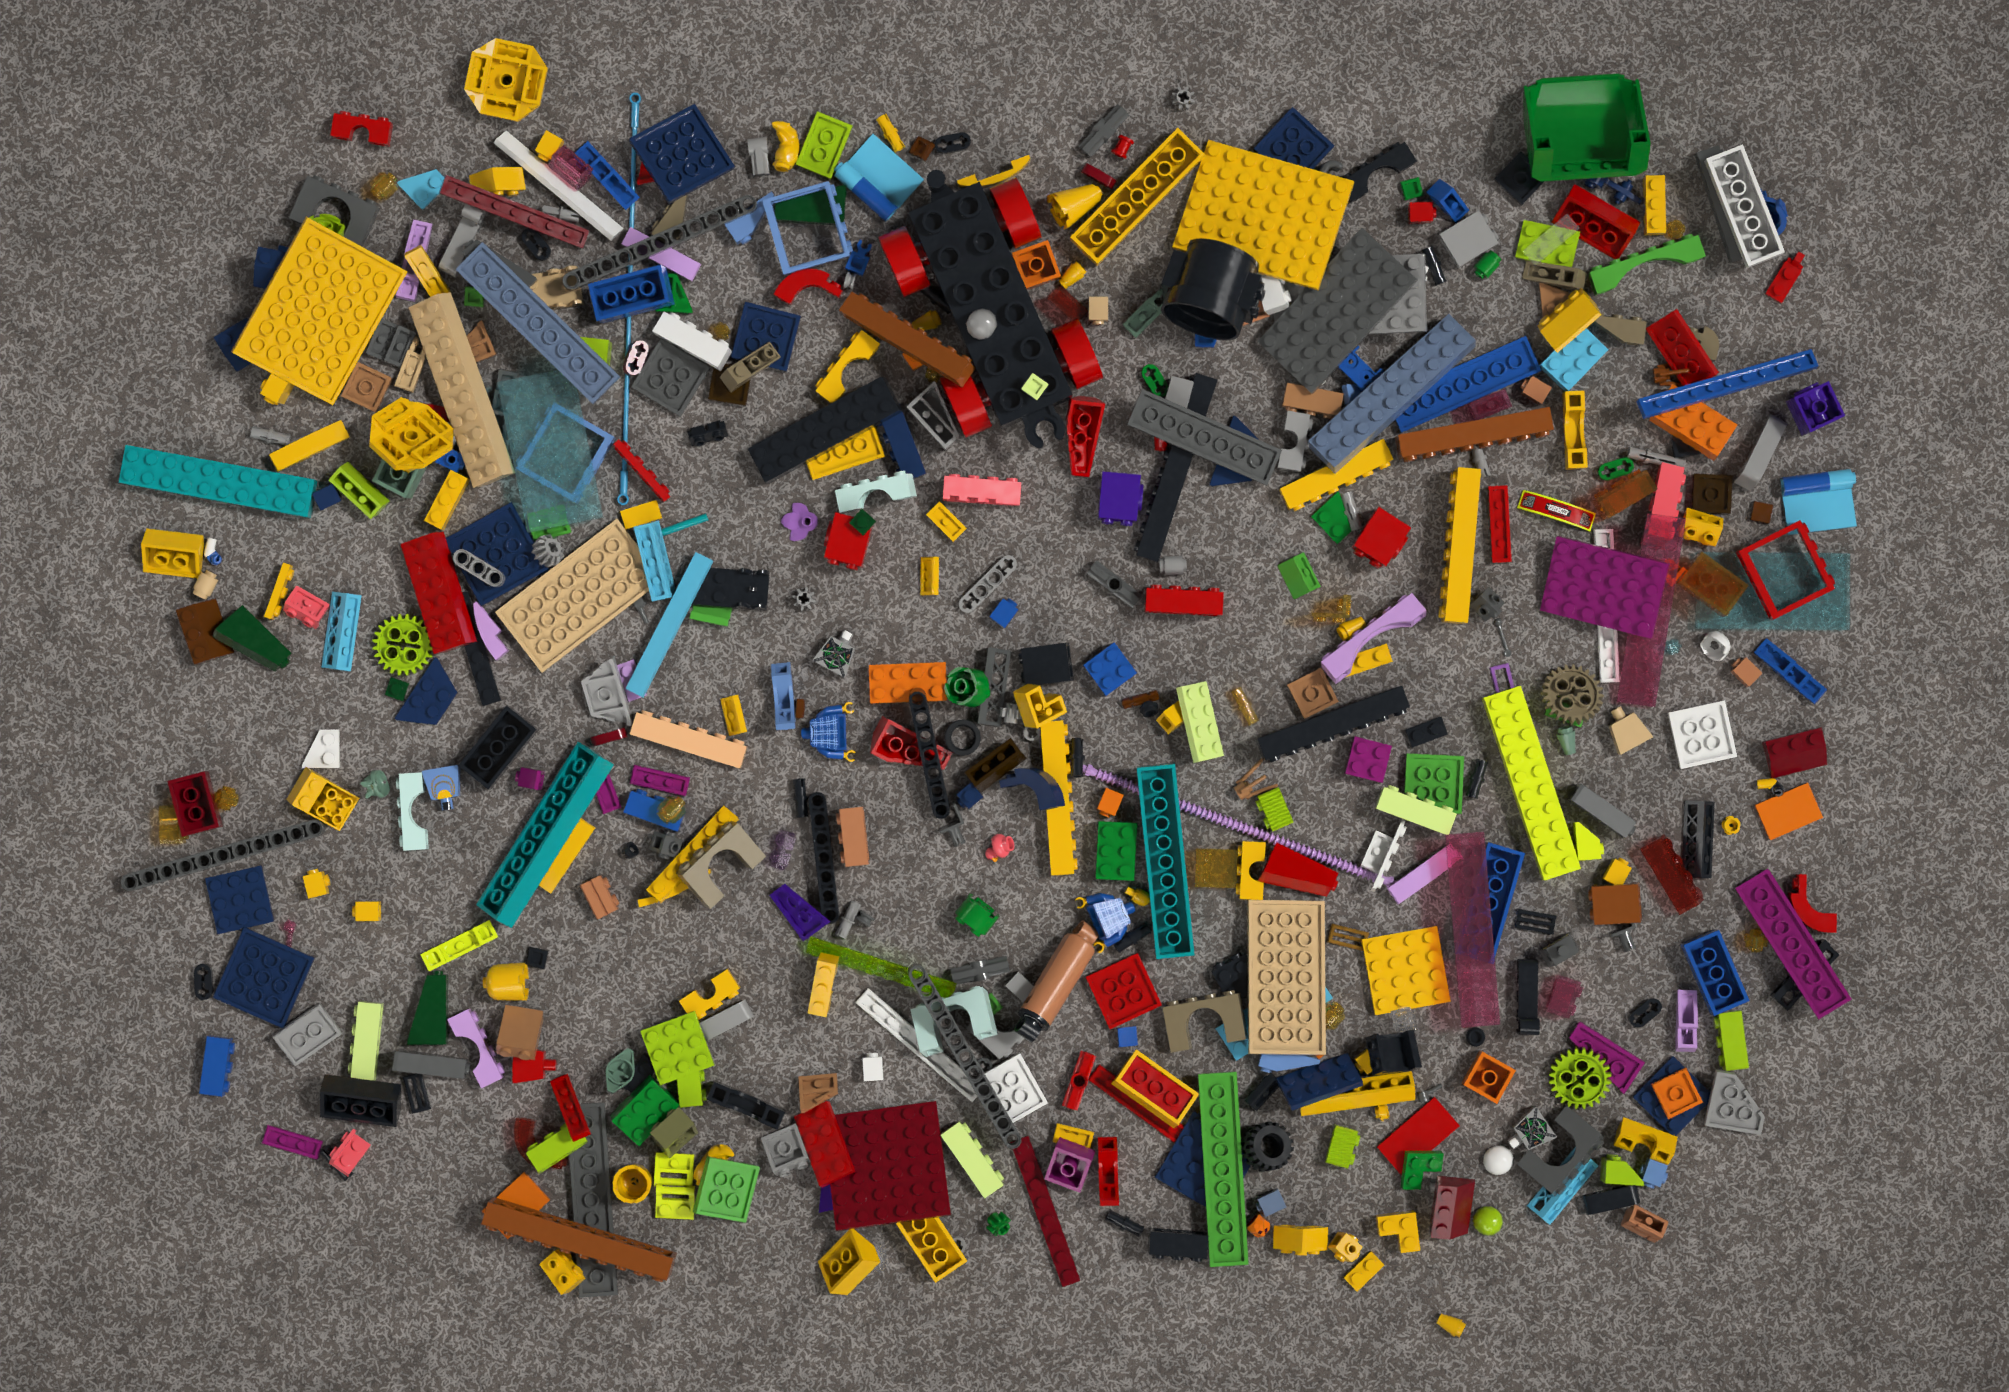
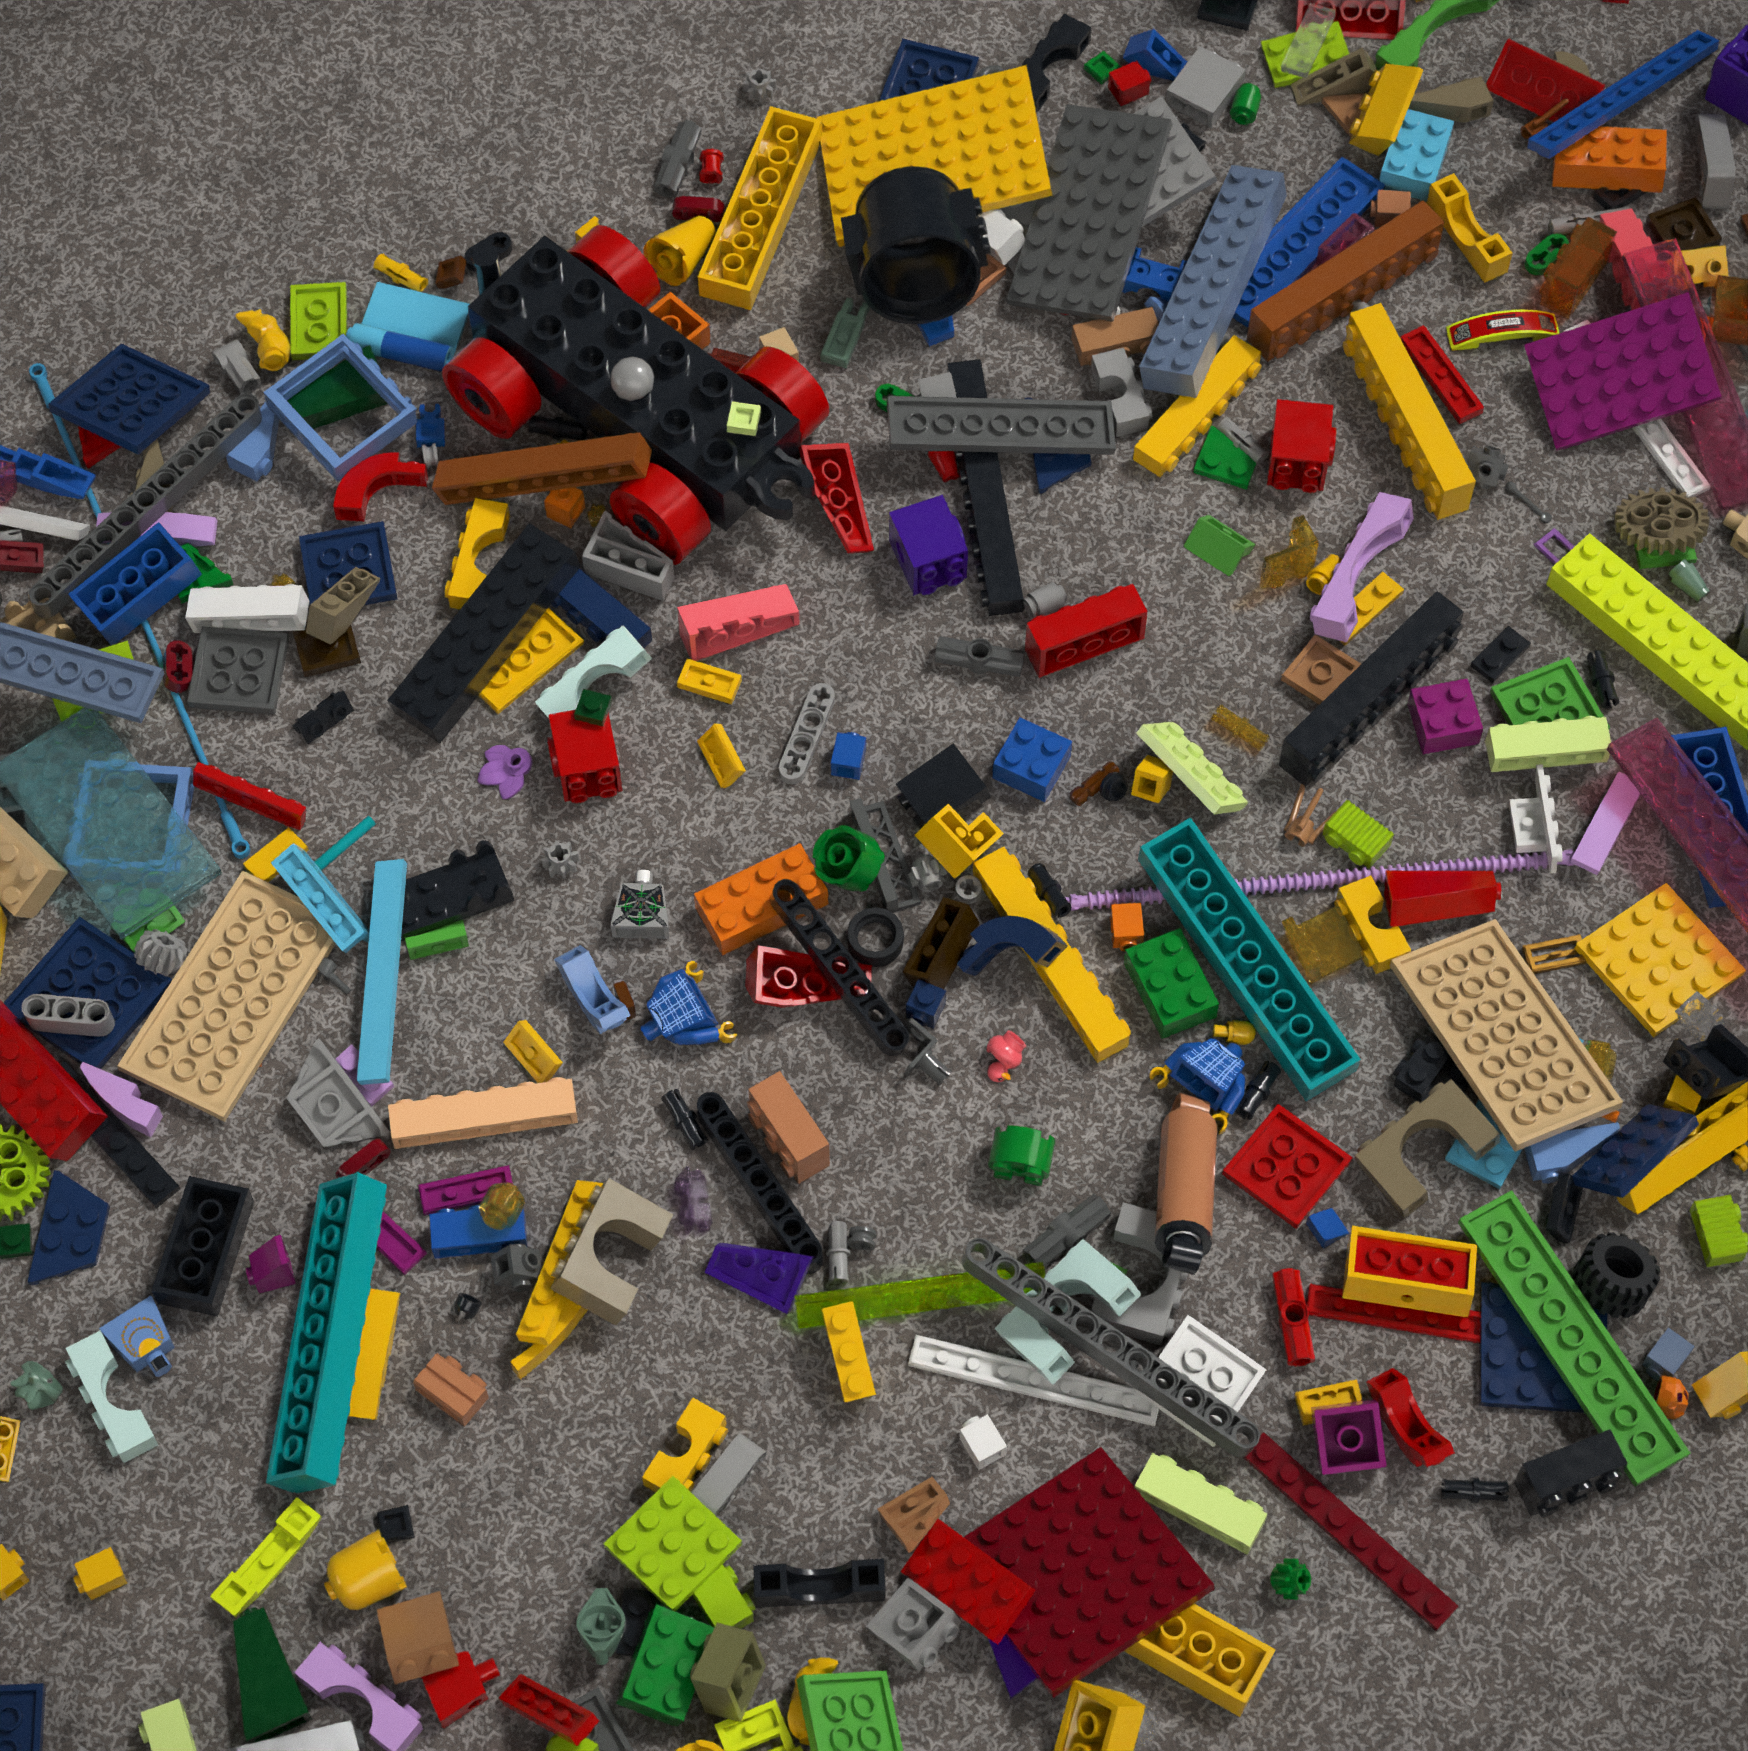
camera: 25 degrees left, 25 degrees down
(1072, 275) = (724, 328): yellow cone -> none

